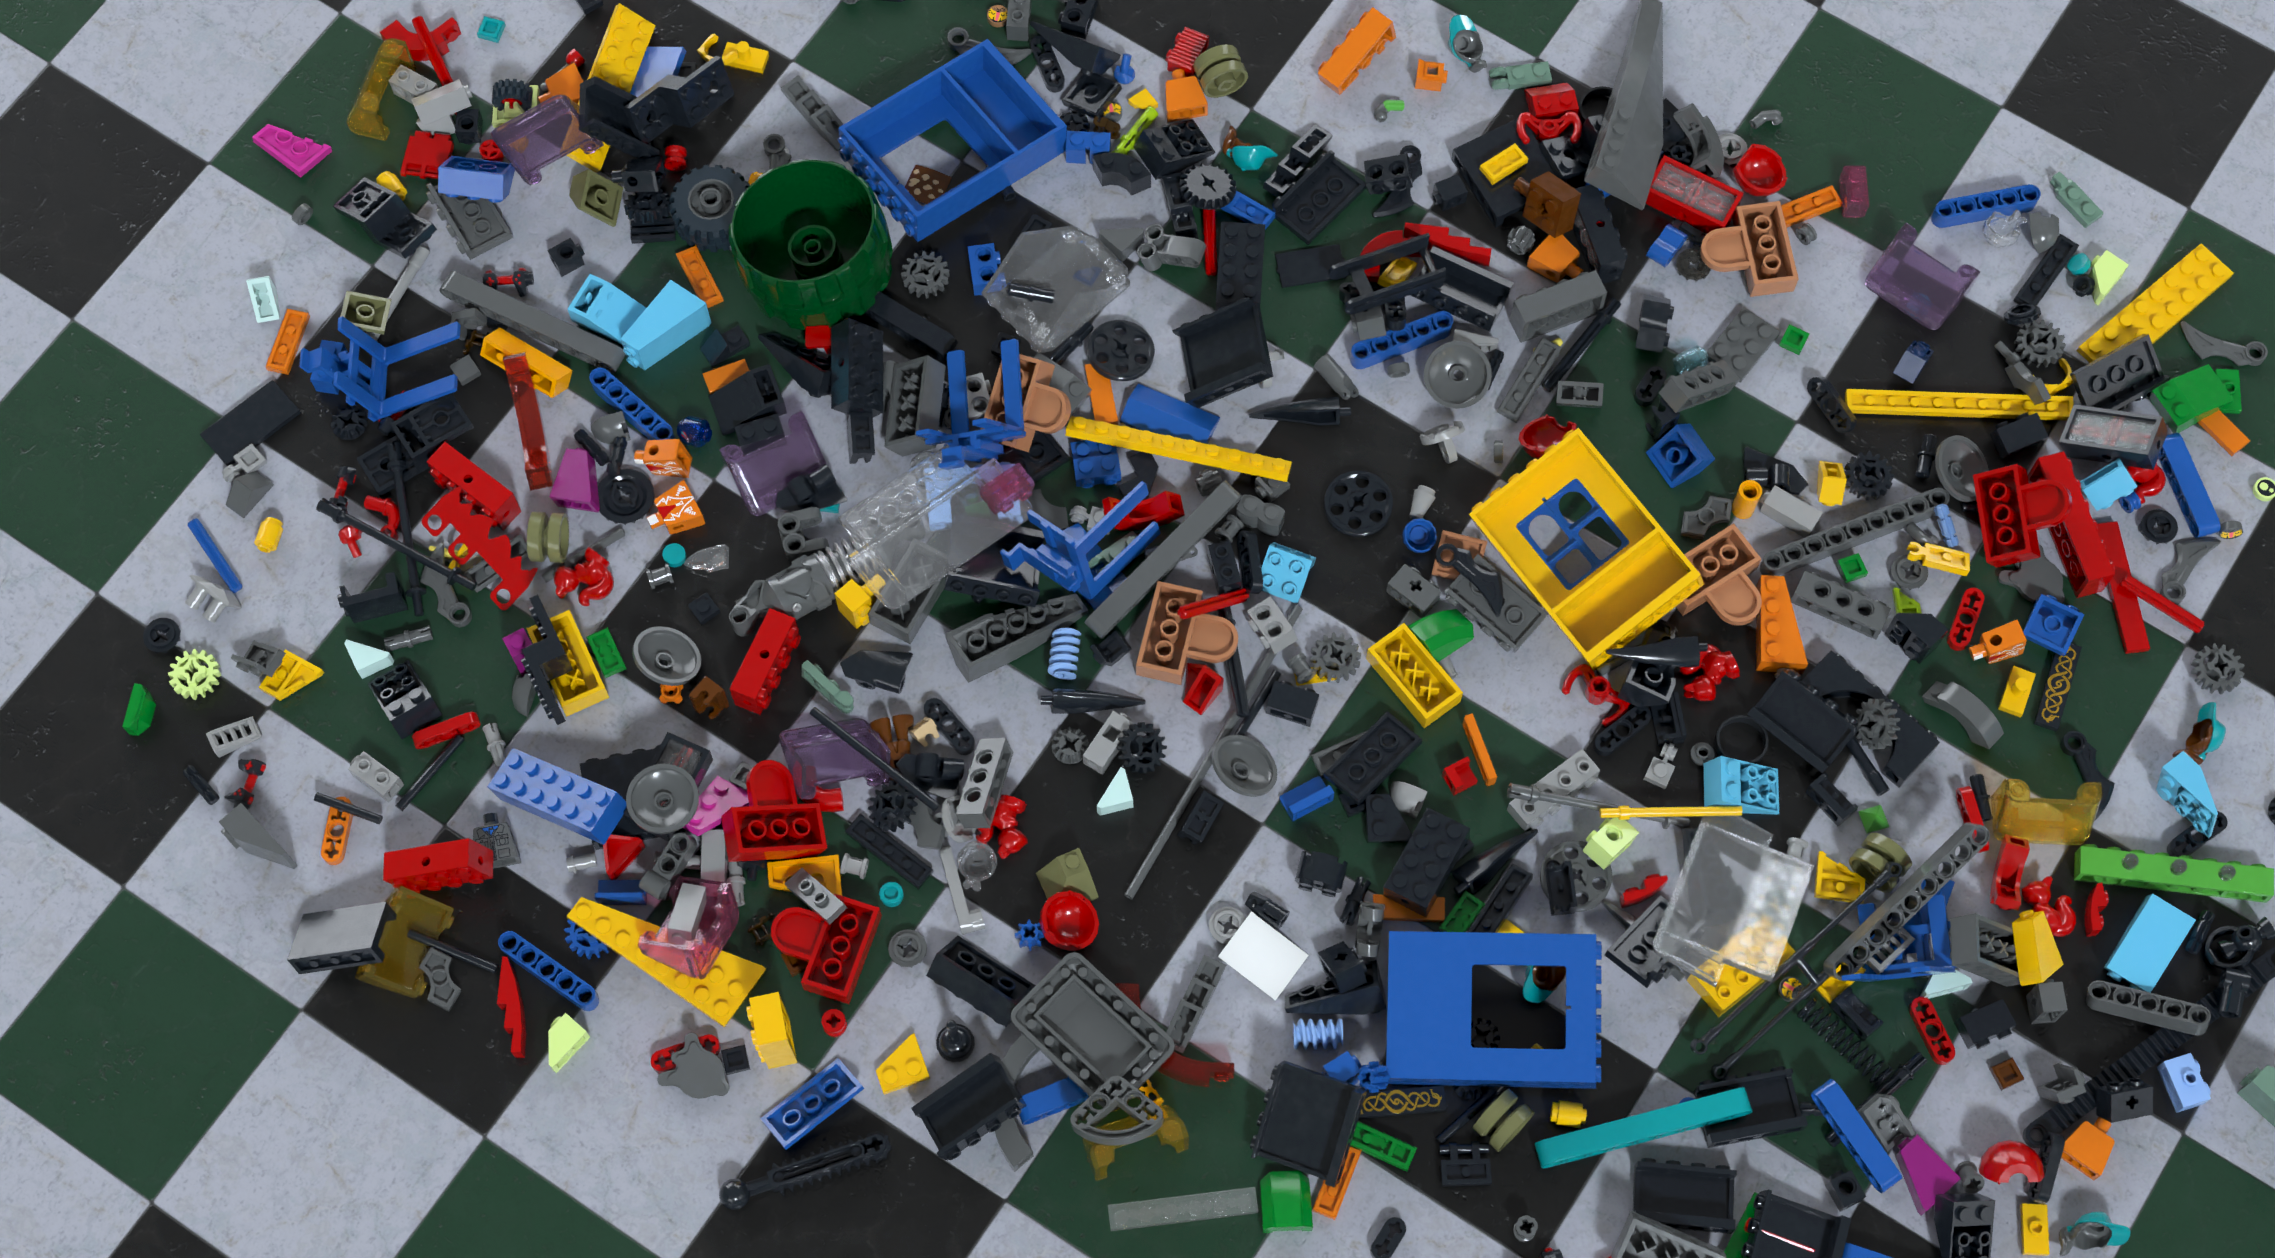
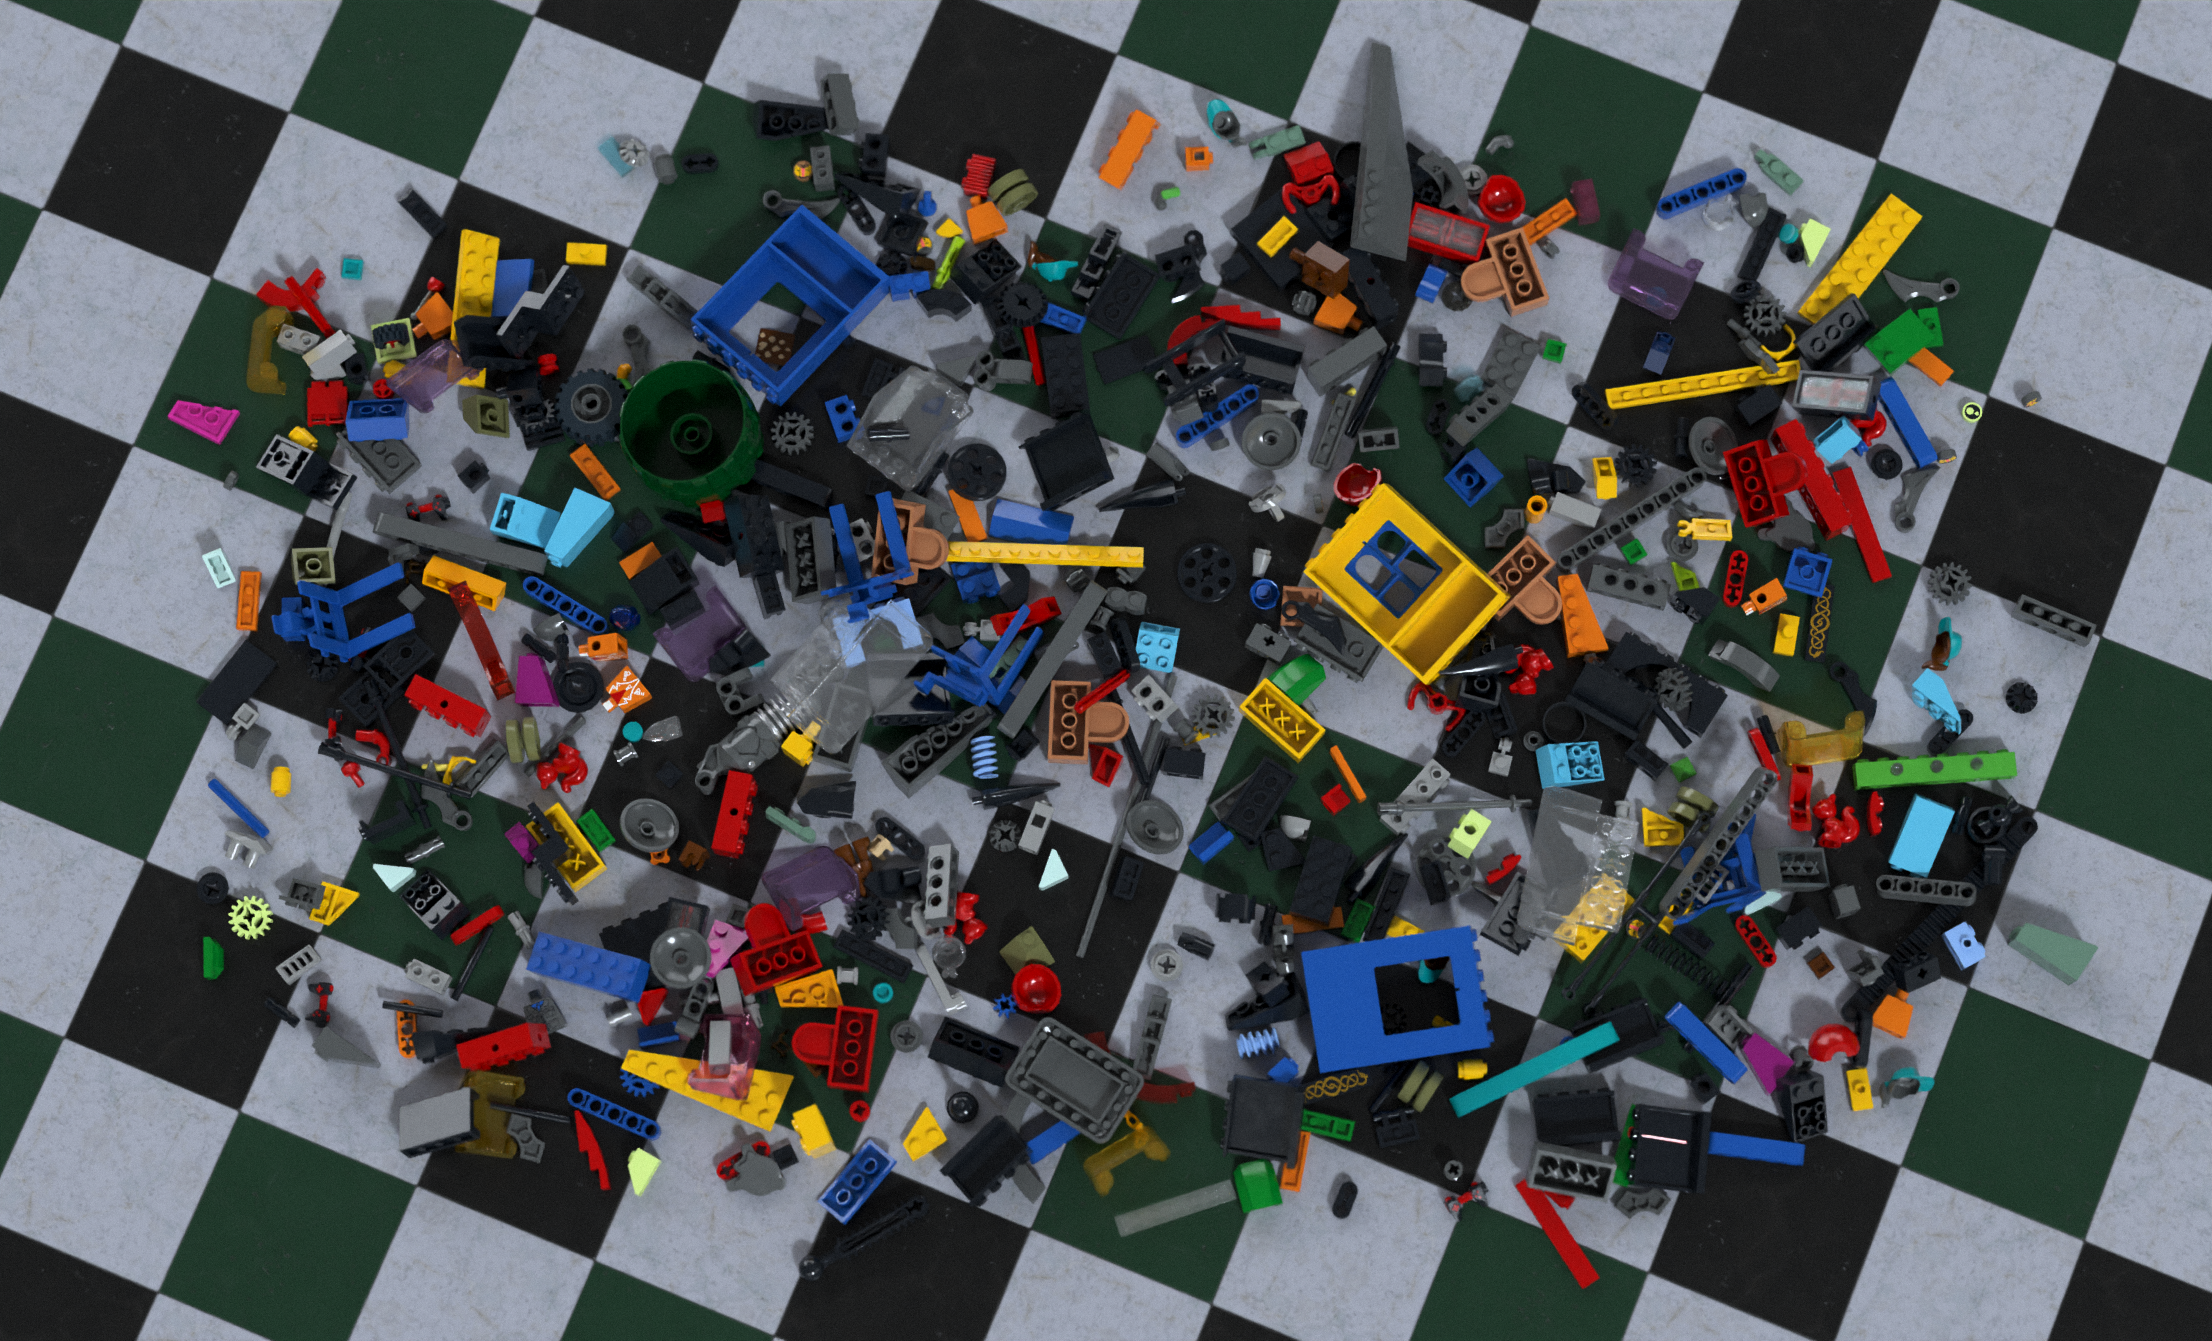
camera: 10 degrees left, 10 degrees up
(364, 853) = (436, 1045): none -> black wedge
(474, 534) = (460, 750): red piece -> none
(703, 51) = (548, 255): yellow cap -> none
(815, 896) = (822, 1010): dark grey plate -> none
(875, 759) = (845, 883): black piece -> none
(1007, 488) = (908, 627): clear pink brick -> none
(1120, 1099) = (1109, 1133): dark grey beam -> none
(1149, 750) = (1067, 827): black gear -> none
(1263, 955) = (1200, 985): white sticker -> none
(1373, 1077) = (1310, 1074): blue gear -> none
(1397, 272) = (1202, 356): yellow tile -> none
(1626, 812) = (1477, 807): yellow bar -> none
(1946, 525) = (1707, 499): medium blue axle -> none
(2035, 948) = (1828, 860): yellow slope -> none
(2162, 603) = (1896, 534): red axle -> none

